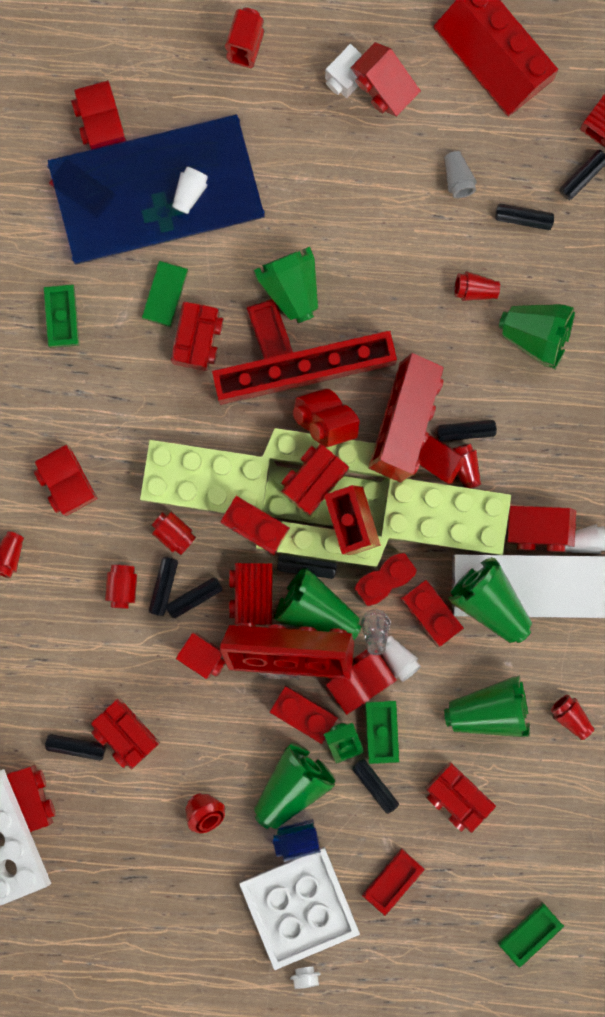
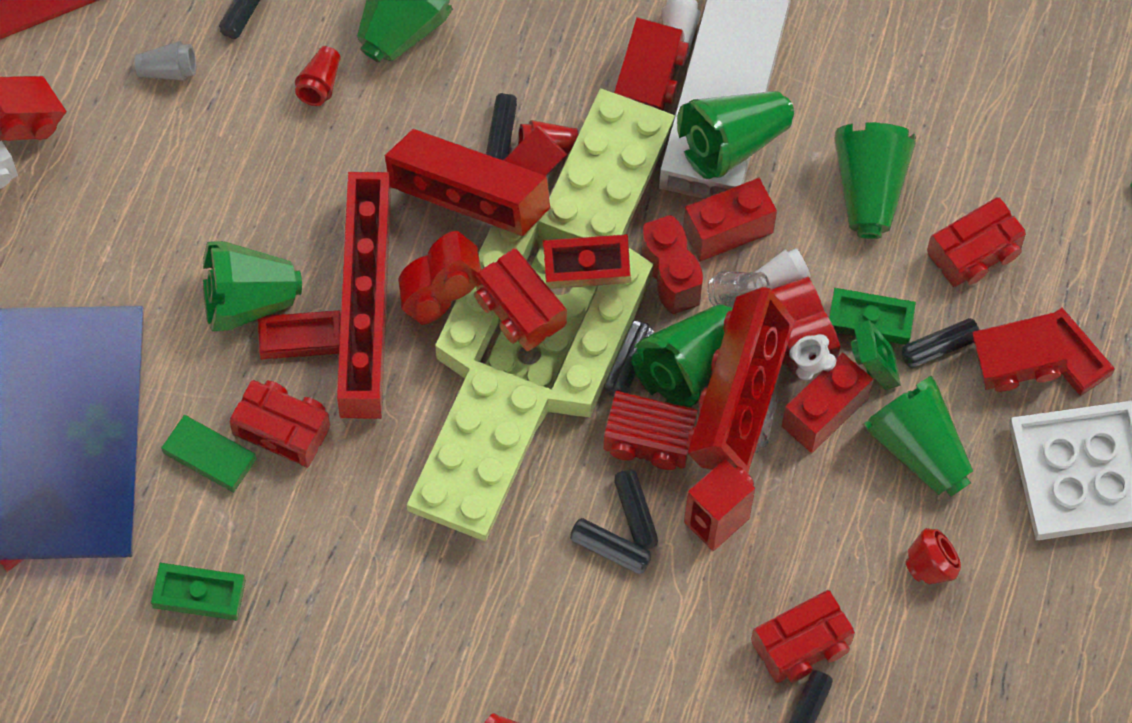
camera: 80 degrees left, 20 degrees down
(65, 480) = (431, 636): red brick -> none
(121, 586) = (597, 596): red brick -> none
(173, 532) = (541, 513): red brick -> none
(189, 189) = (78, 381): white cone -> none
(255, 525) = (562, 384): red brick -> none
(297, 840) = (994, 440): clear blue brick -> none
(328, 688) = (810, 346): none -> white plate
(375, 846) = (1020, 352): none -> red brick
(572, 716) = (898, 93): red cone -> none

